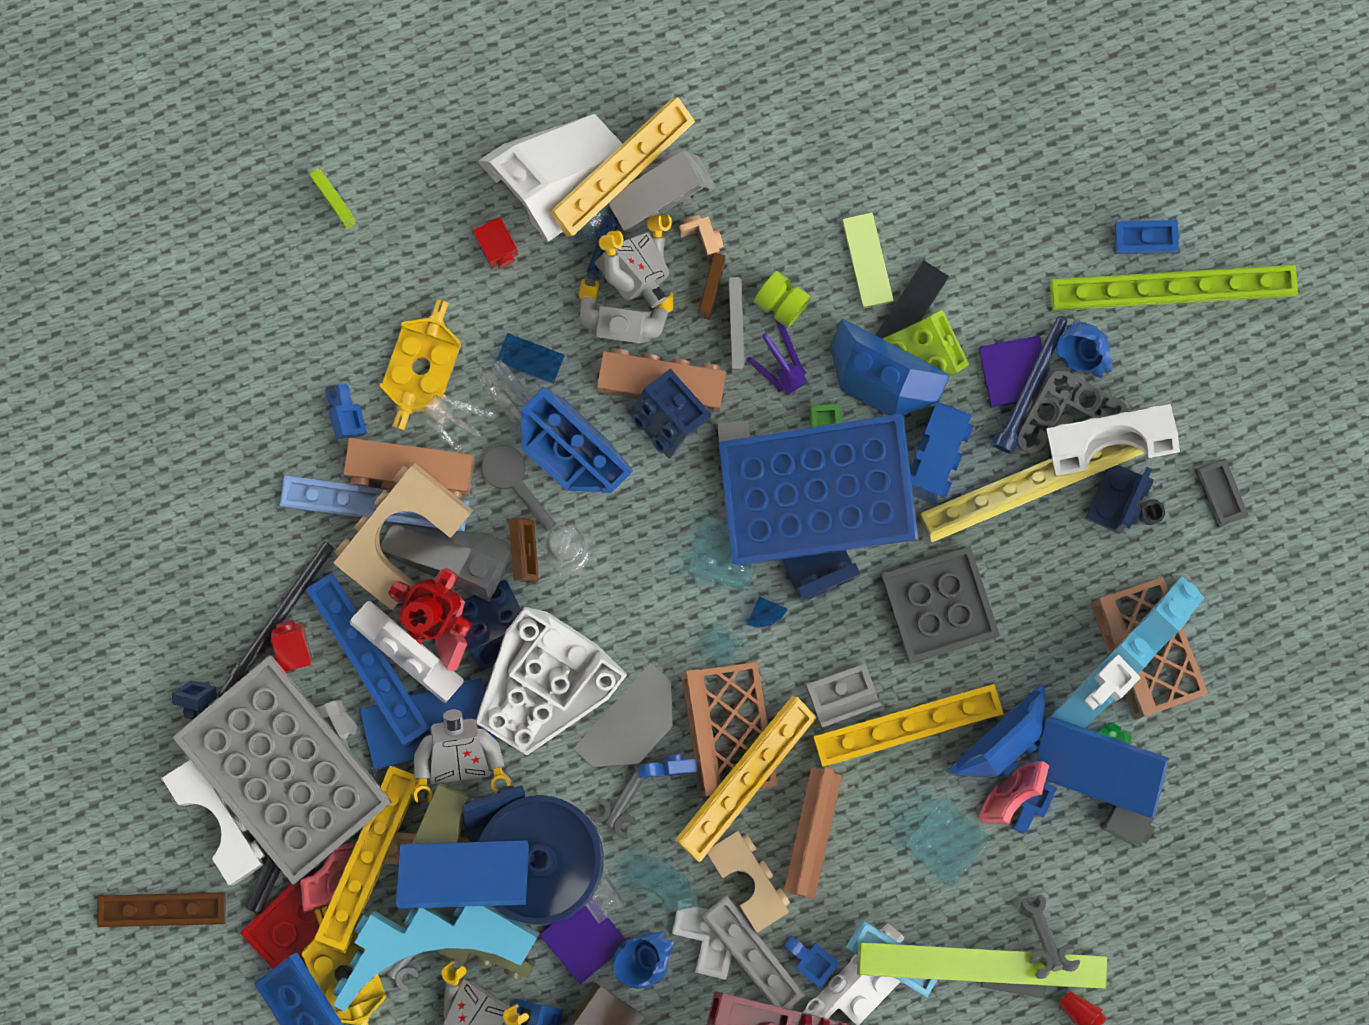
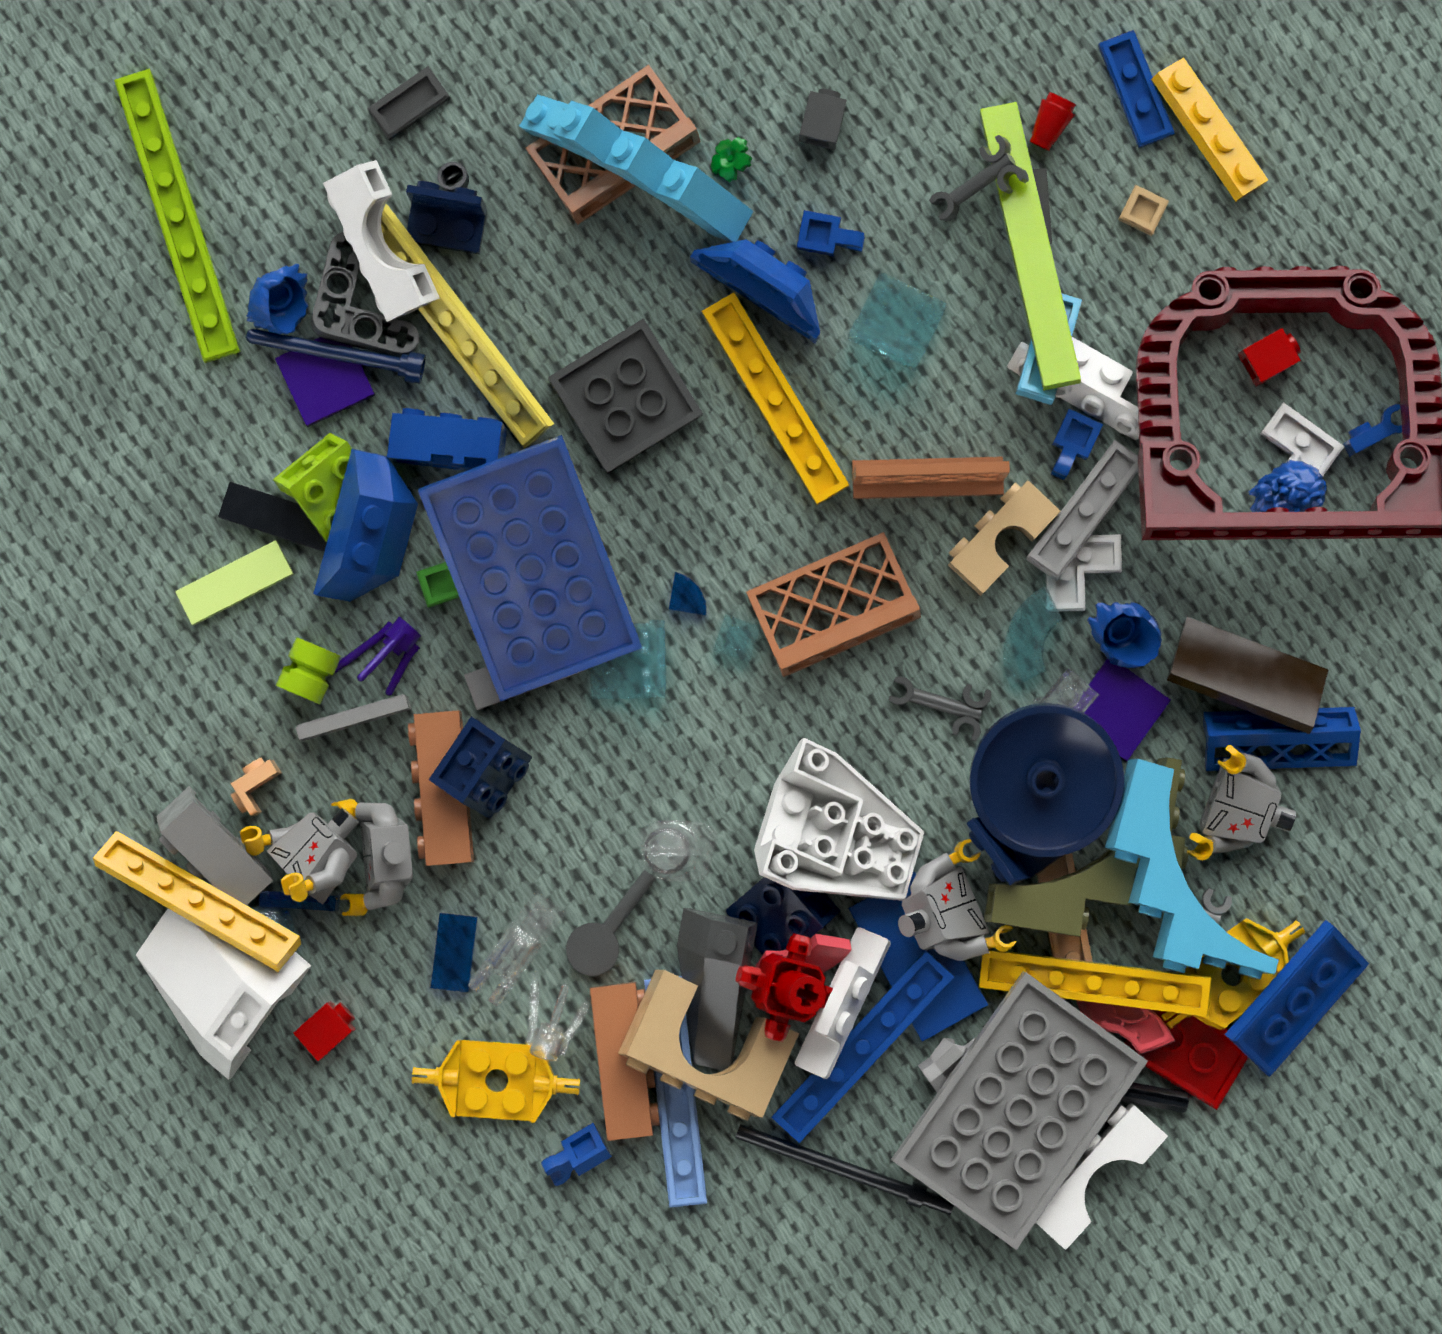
camera: 100 degrees left, 5 degrees up
(161, 909) = (1214, 1208): reddish brown tile -> none
(194, 698) = (961, 1239): dark blue tile -> none
(291, 645) = (870, 1141): red brick -> none
(333, 198) = (319, 1242): lime tile -> none
(462, 874) = (1088, 863): blue tile -> none
(523, 550) = (686, 898): reddish brown tile -> none
(569, 446) = (550, 874): blue wedge -> none
(631, 723) = (856, 719): light grey sticker -> none
(672, 766) = (894, 657): blue plate -> none
(711, 286) = (313, 758): reddish brown tile -> none
(745, 779) = (887, 568): yellow tile -> none
(820, 573) = (626, 543): dark blue bracket -> none
(843, 695) = (760, 481): light grey plate -> none
(1004, 800) = (814, 253): coral tile -> none
(1102, 767) = (769, 163): blue tile -> none
(1114, 681) = (670, 167): white plate -> none
(1146, 237) = (124, 261): blue plate -> none

